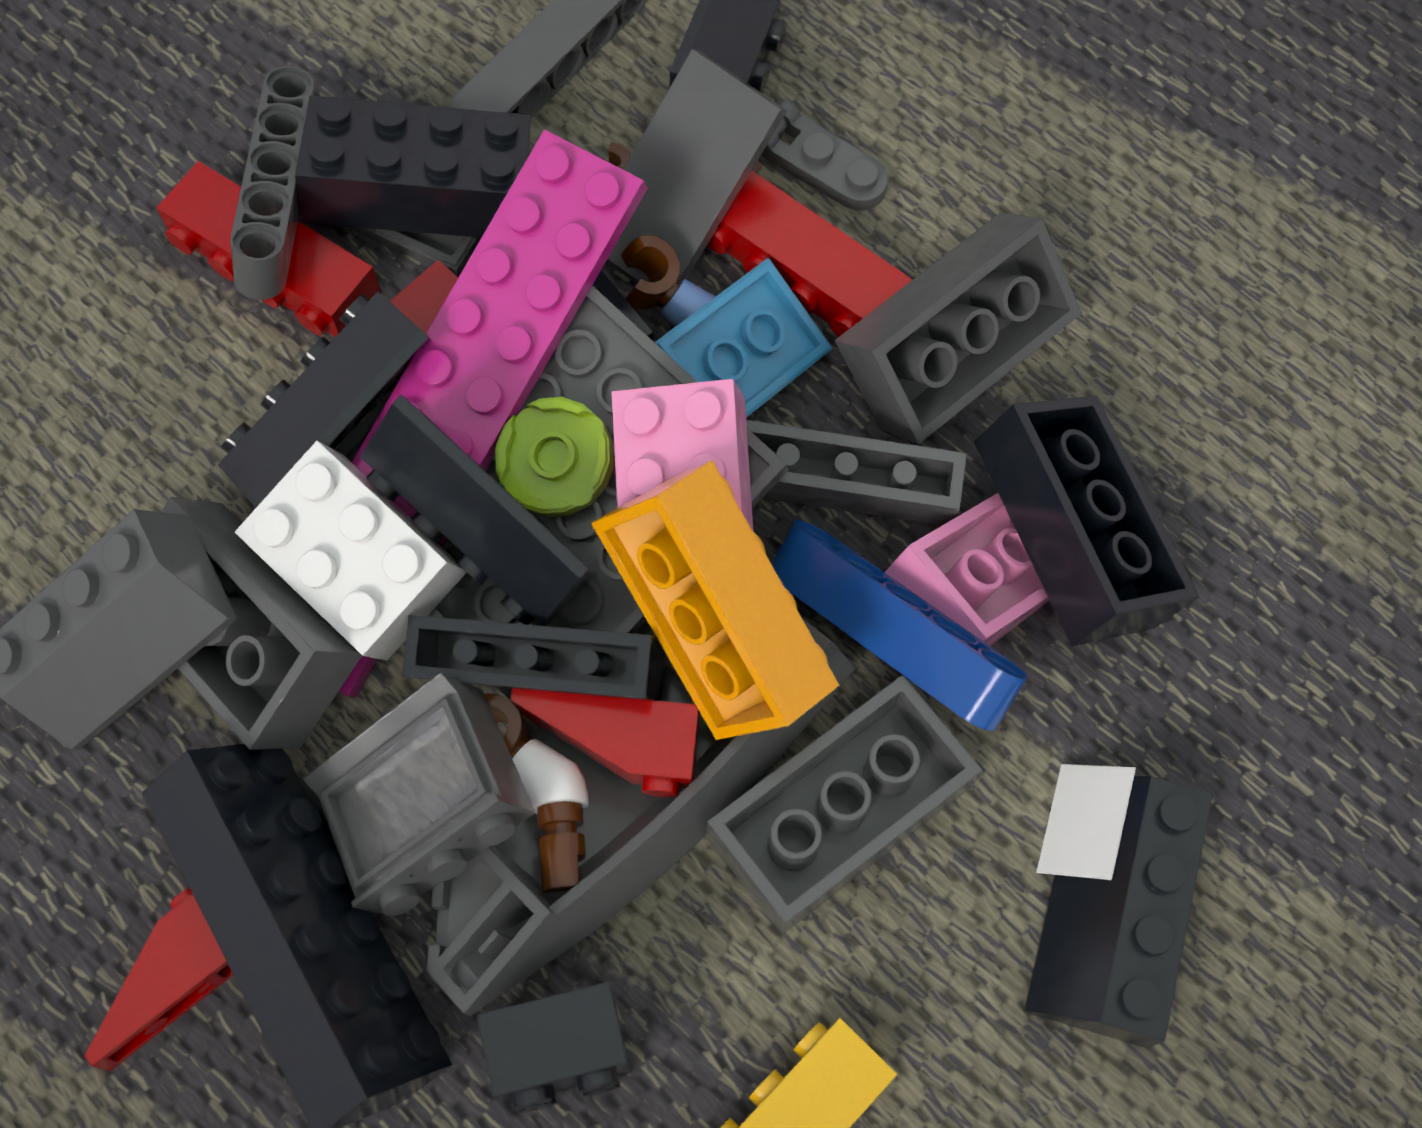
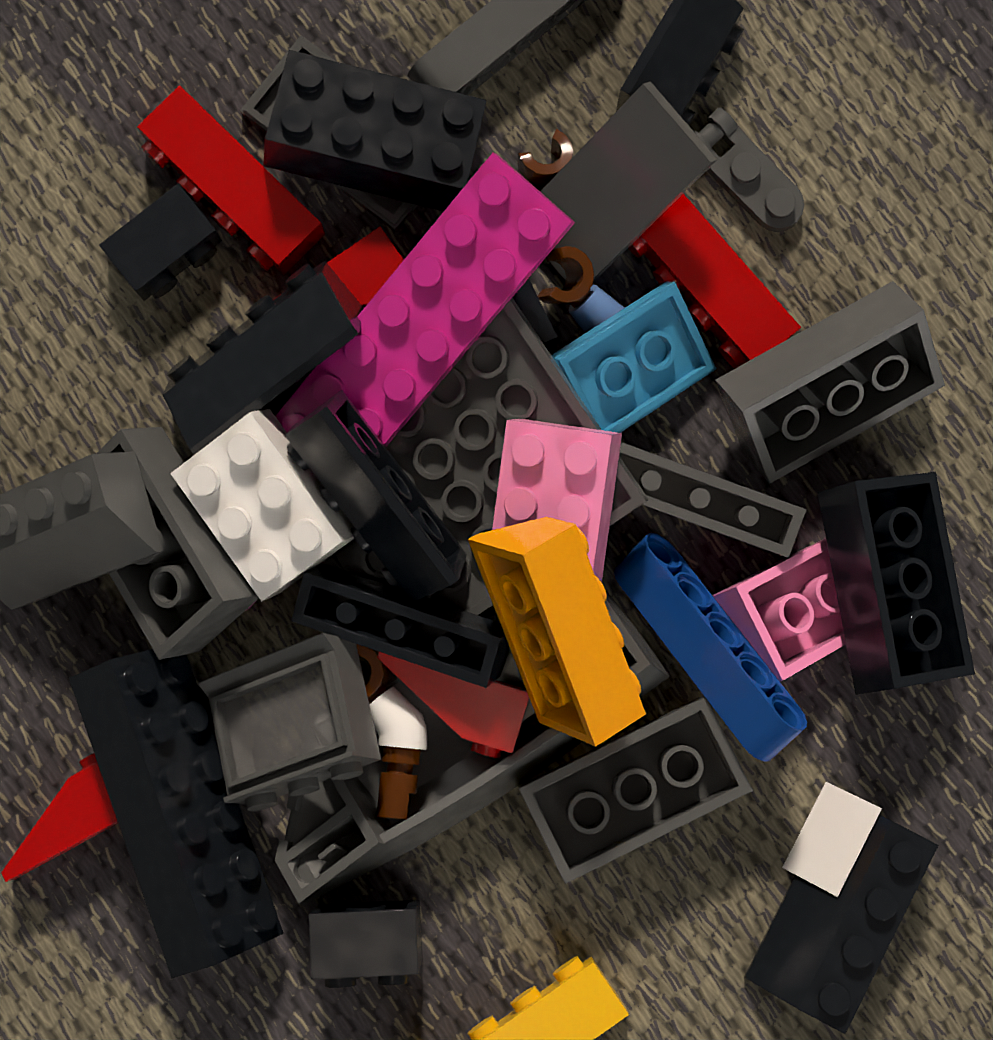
camera: 15 degrees right, 15 degrees up
(198, 325) = (162, 244): none -> black brick
(268, 195) = (241, 146): dark grey beam -> none
(555, 457) = (450, 448): lime tile -> none

